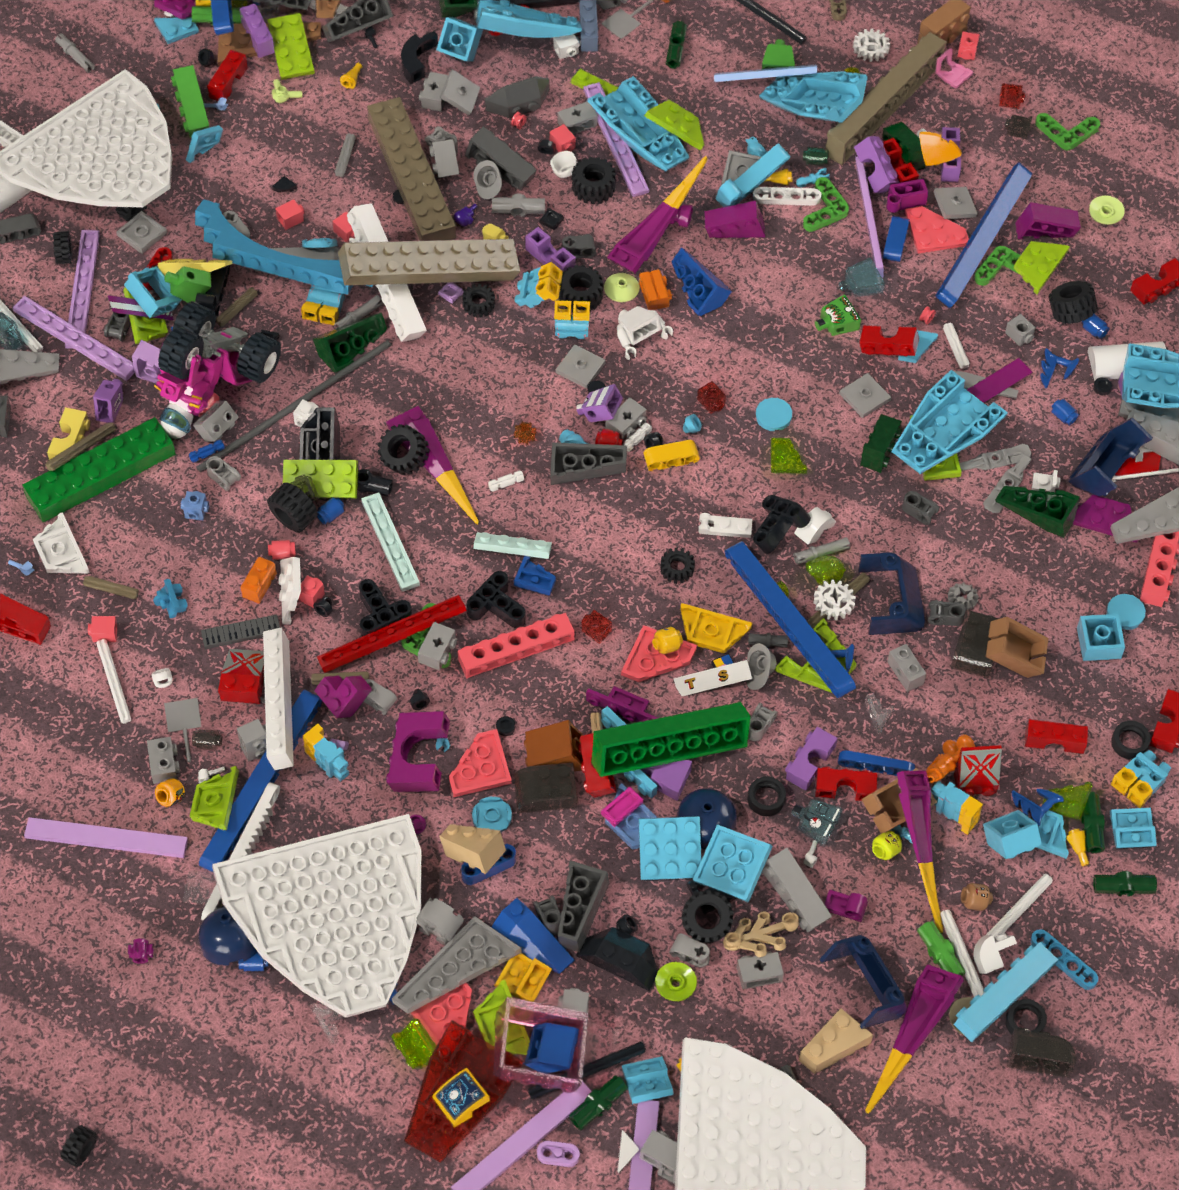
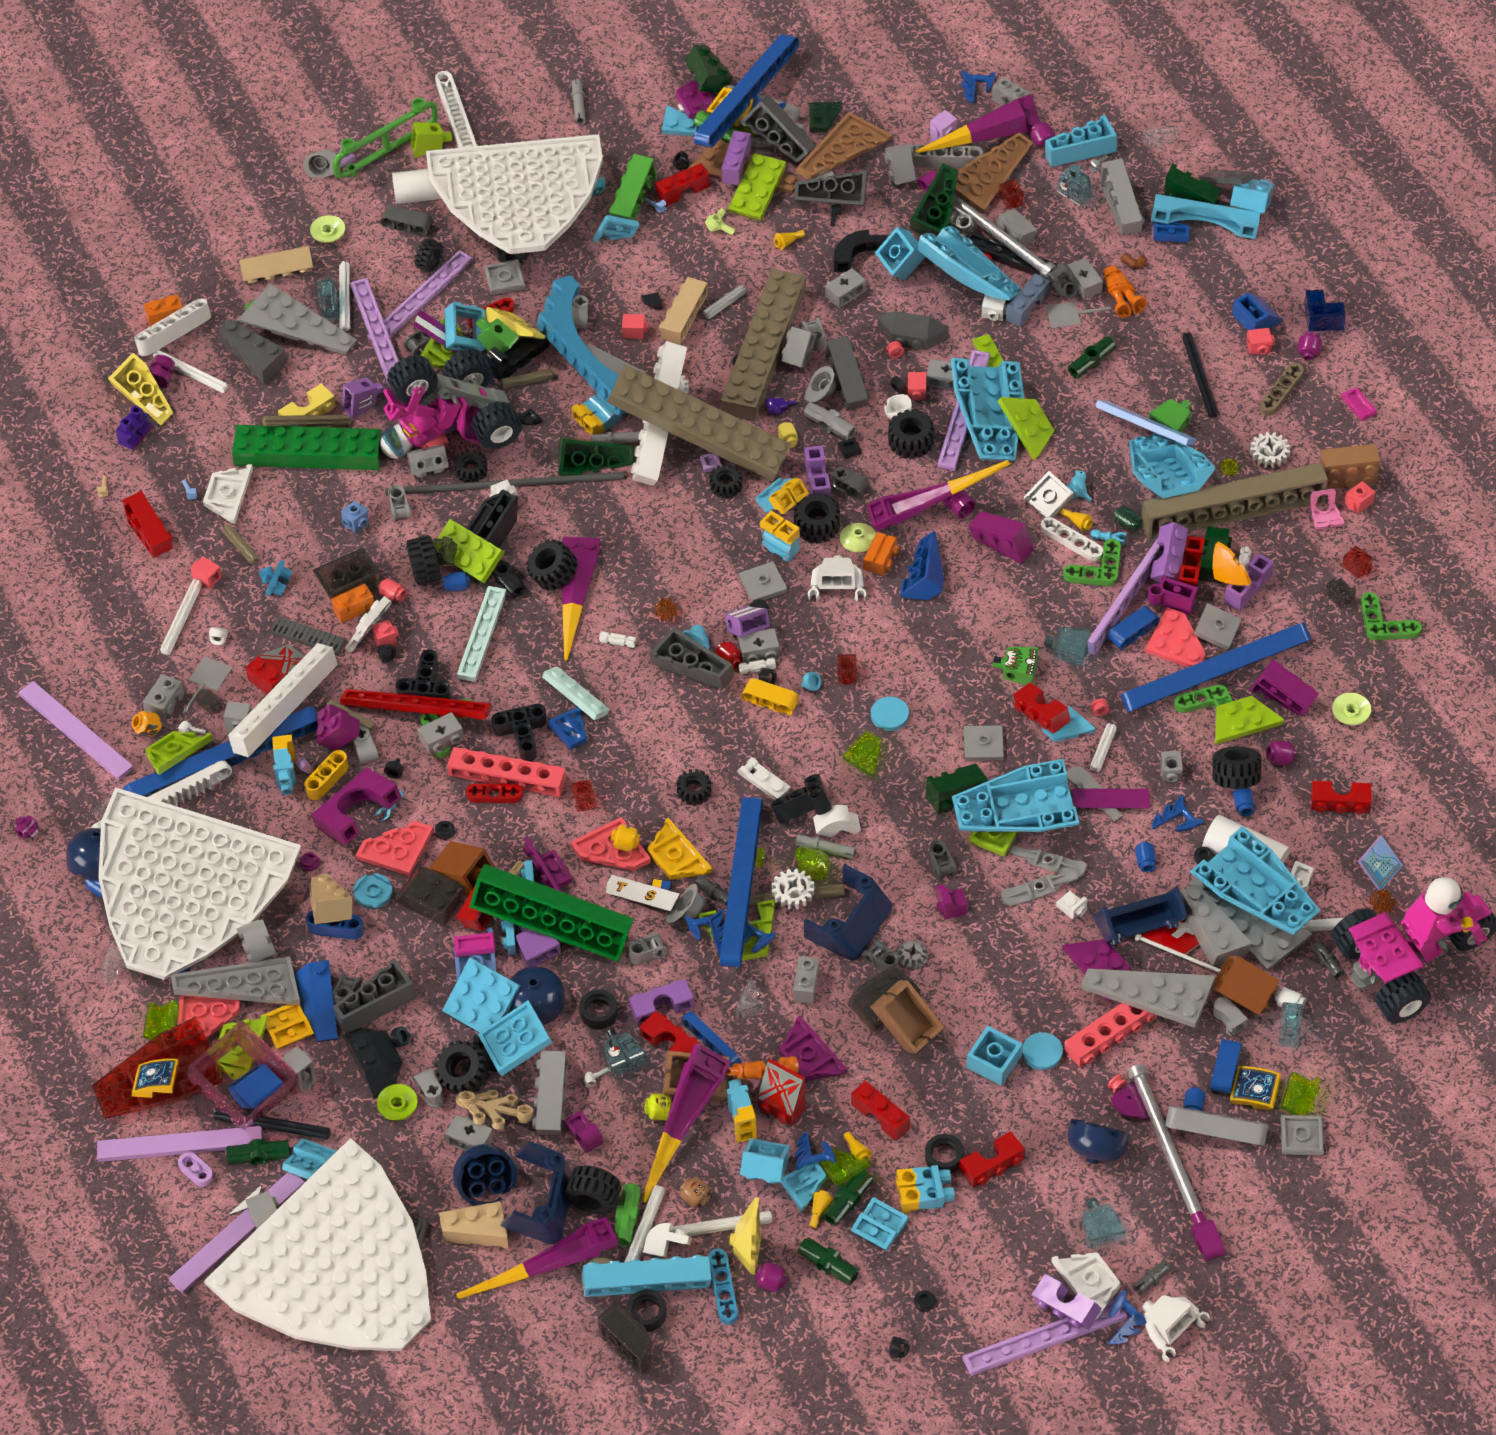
camera: 40 degrees right, 5 degrees down
(206, 451) = (402, 480): blue axle -> none
(236, 557) = (348, 573): none -> clear smoke brick
(256, 415) = (470, 458): none -> black tyre
(319, 243) = (634, 362): medium azure tile -> none
(321, 179) = (683, 310): none -> tan brick
(366, 732) = (329, 767): none -> yellow beam
(460, 92) = (864, 299): light grey plate -> none
(534, 666) = (508, 788): none -> red beam
(734, 192) = (1044, 505): medium azure beam -> none
(796, 666) = (714, 922): none -> blue piece
(800, 991) = (482, 1166): none -> dark blue cylinder
(905, 948) = (593, 1189): none -> black tyre
(951, 722) = (812, 1053): none -> magenta wing
(956, 536) = (951, 902): none -> magenta brick
(1046, 509) = (1047, 923): dark green wedge -> none
(1058, 904) = (748, 1237): none -> light yellow wedge
(1063, 778) = (857, 1148): none -> yellow cone
(1088, 272) = (1280, 753): none -> magenta head
(1094, 926) = (770, 1276): none -> magenta head

